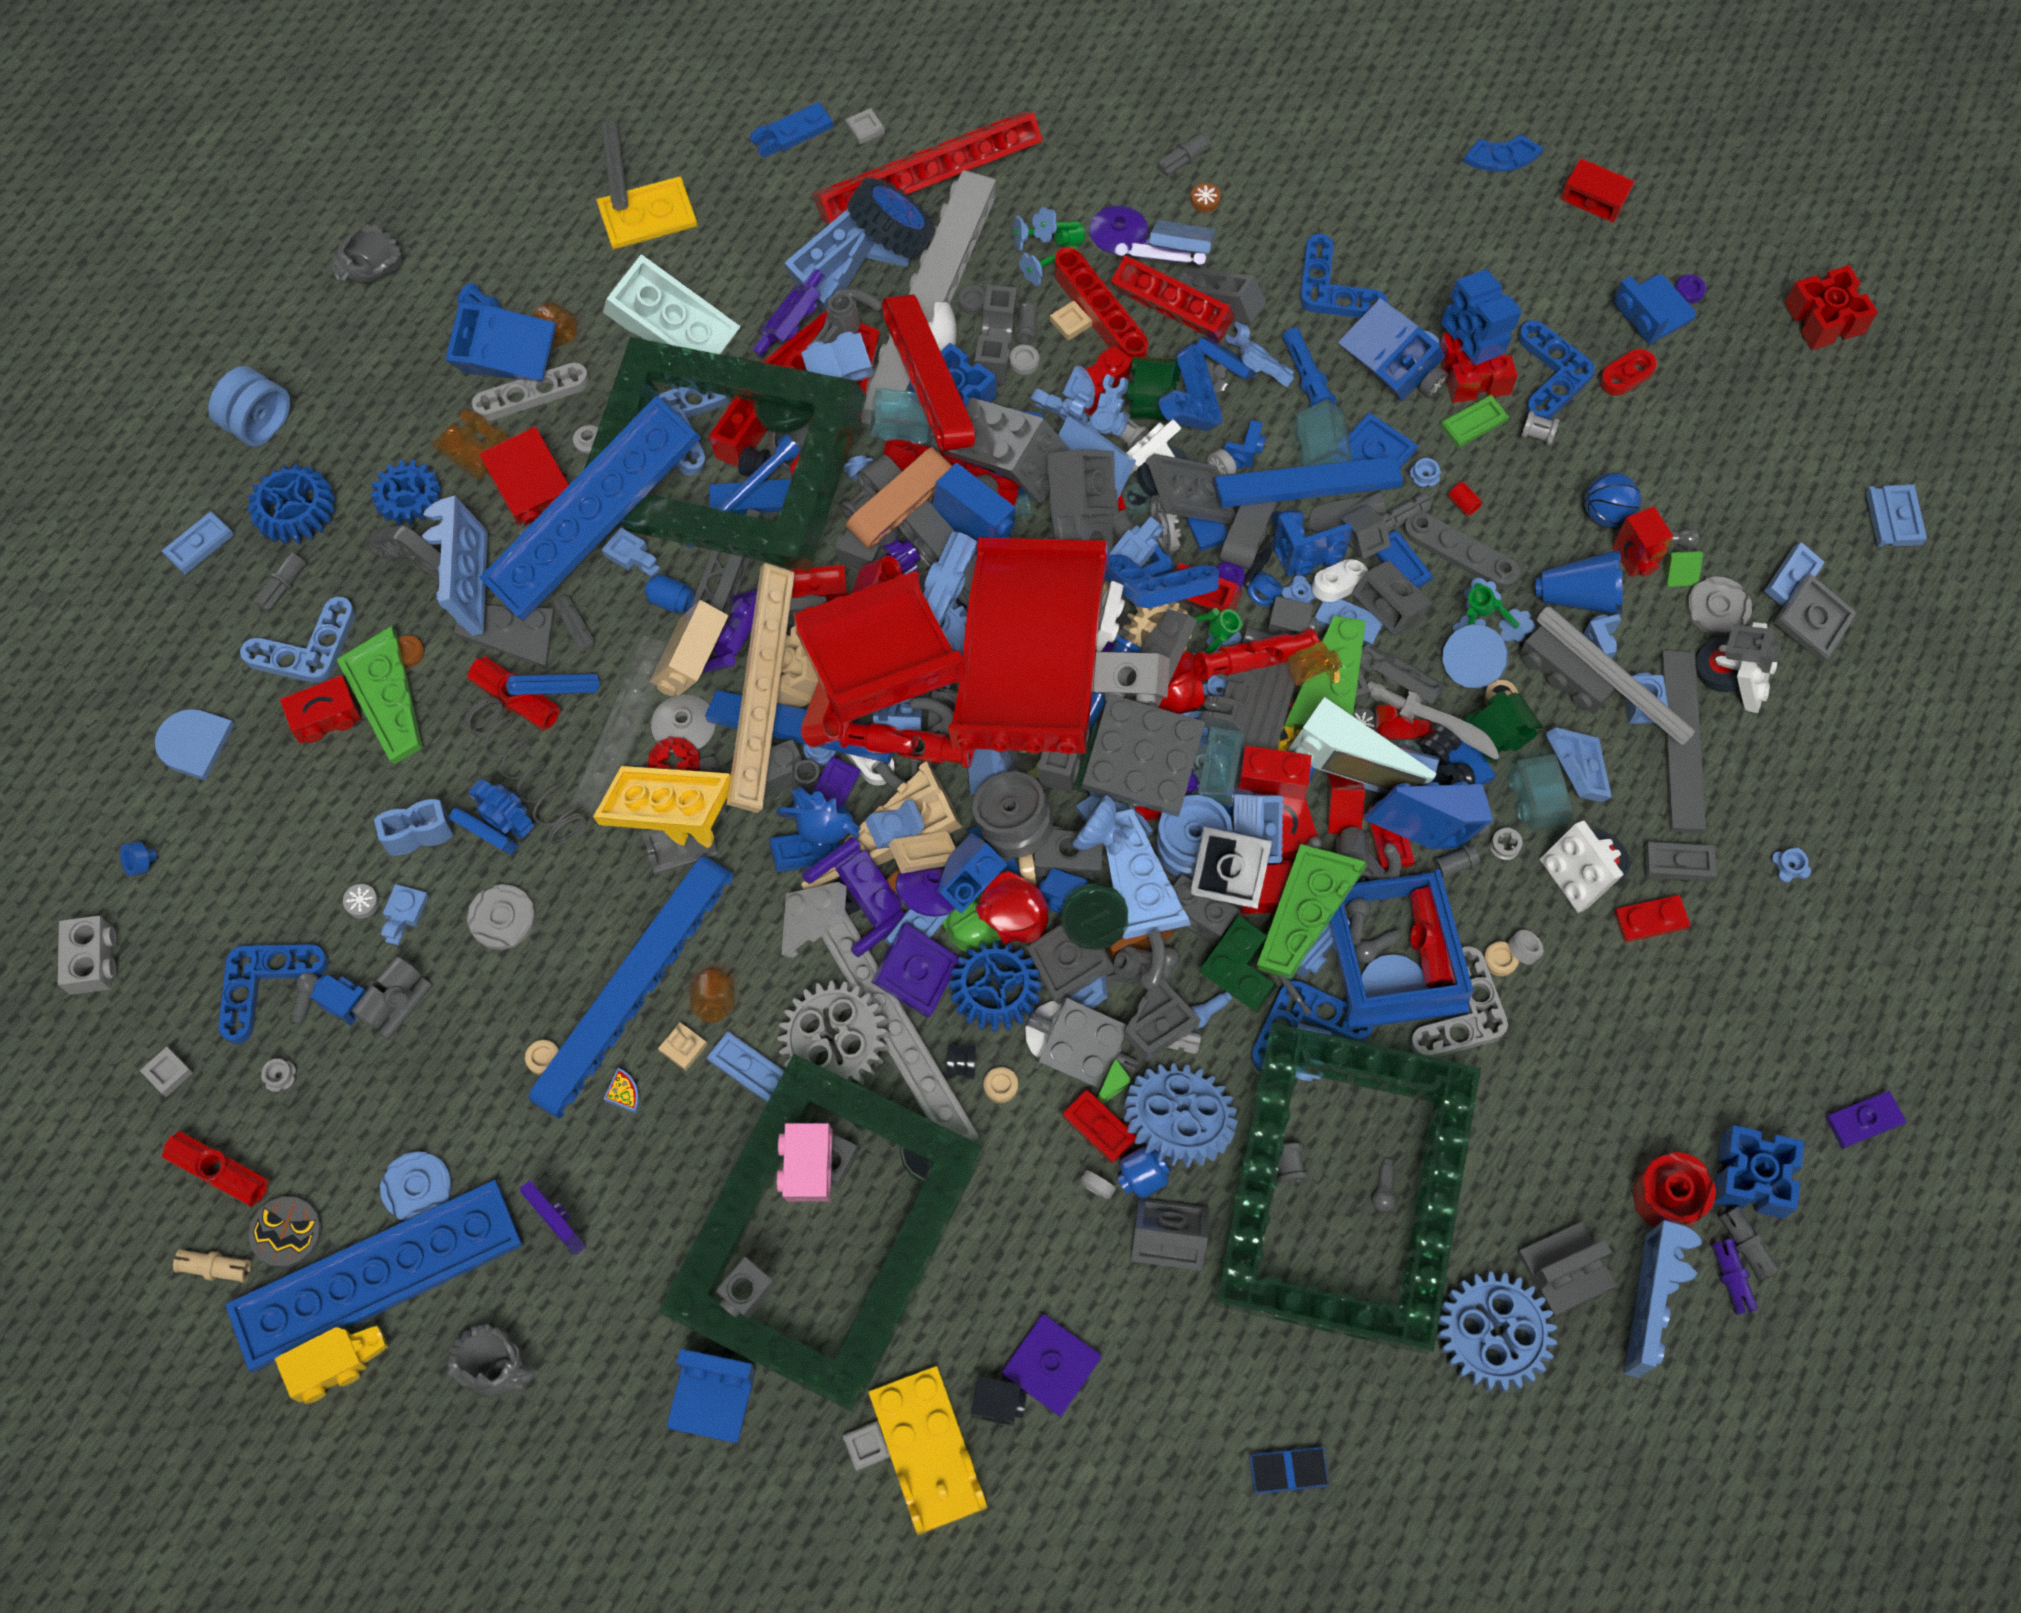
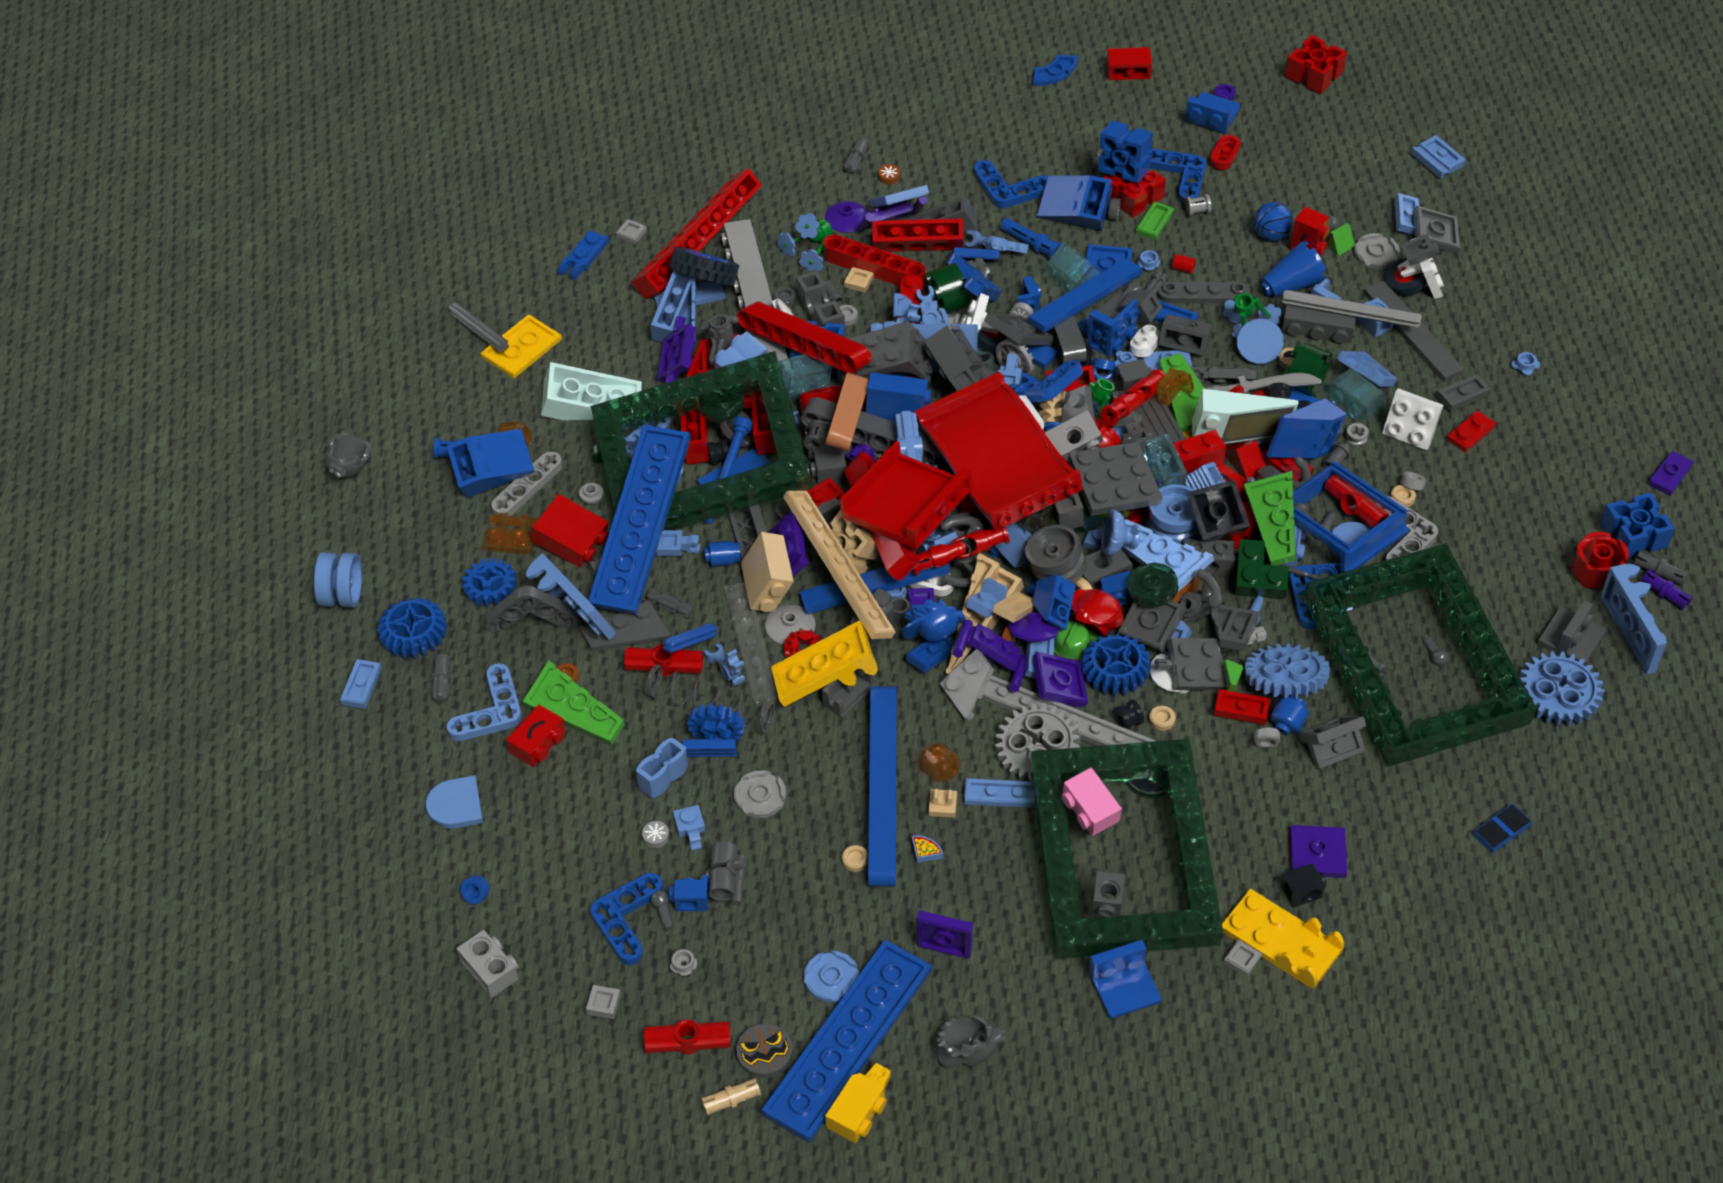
camera: 30 degrees left, 15 degrees down
(573, 740) = (728, 663): none -> medium blue piece

